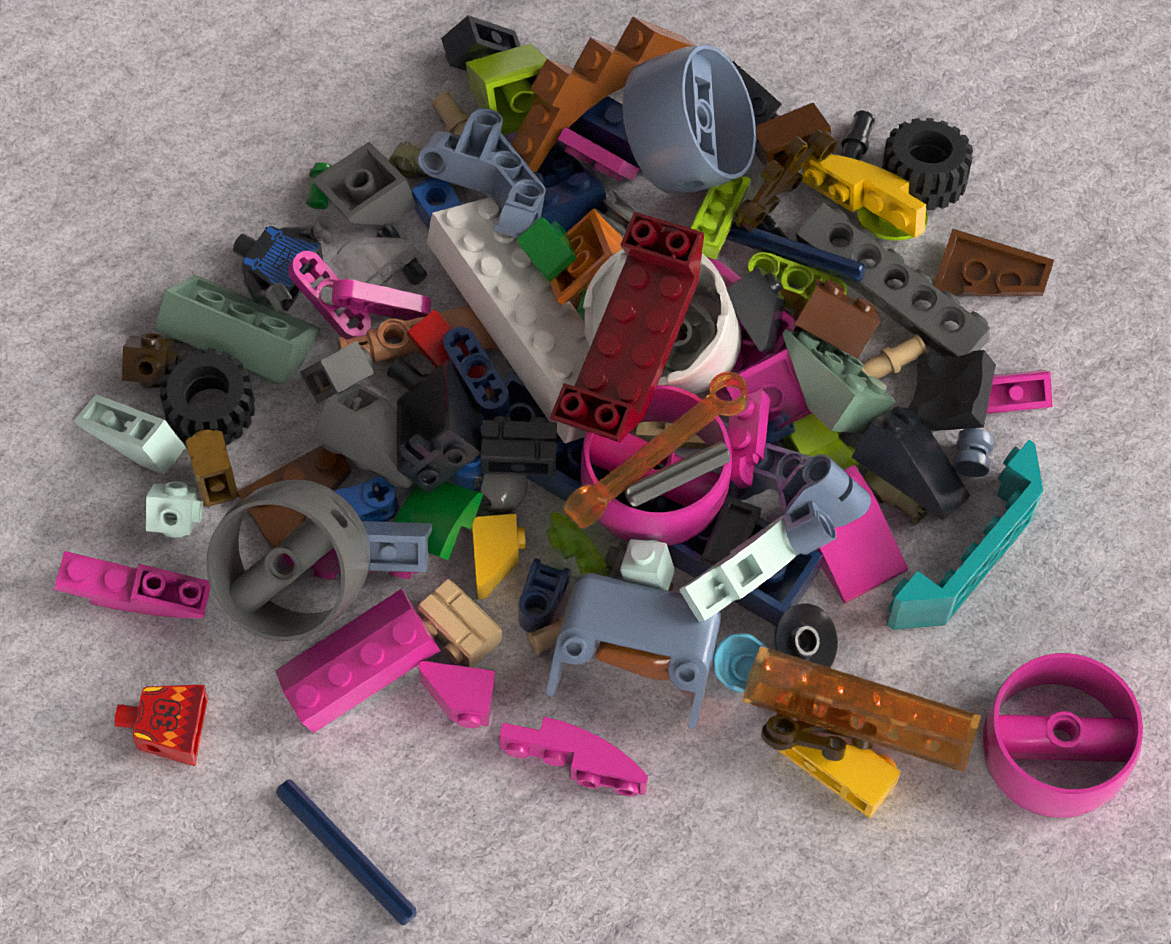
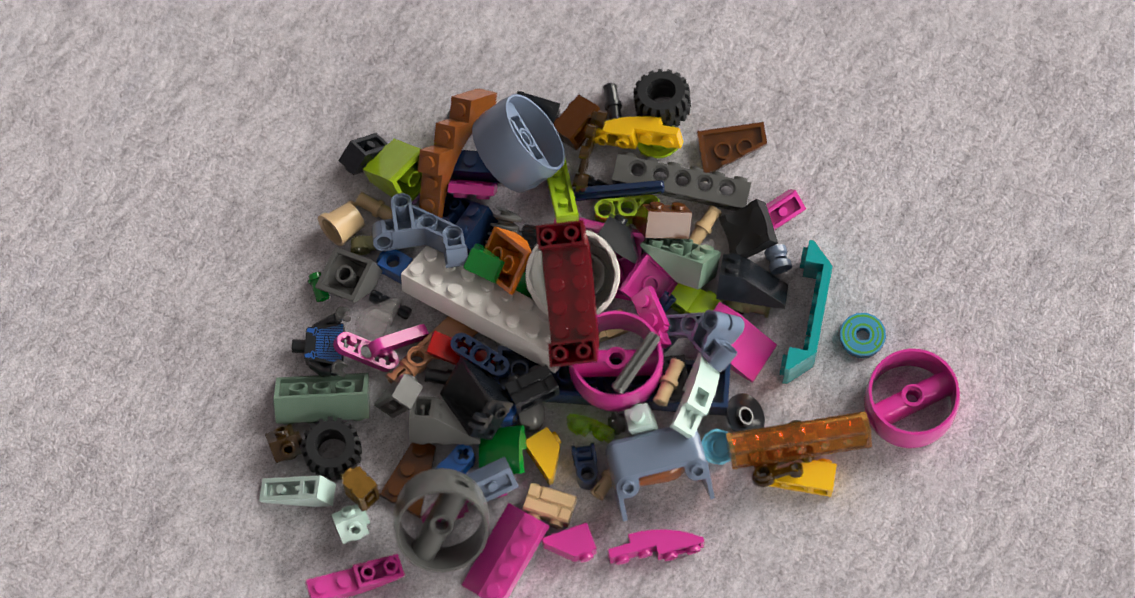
camera: 25 degrees left, 5 degrees up
(398, 117) = (341, 223): none -> tan hat
(590, 501) = (598, 401): clear orange piece -> none
(715, 532) = (668, 382): none -> tan pin
(1043, 596) = (862, 322): none -> dark azure tile

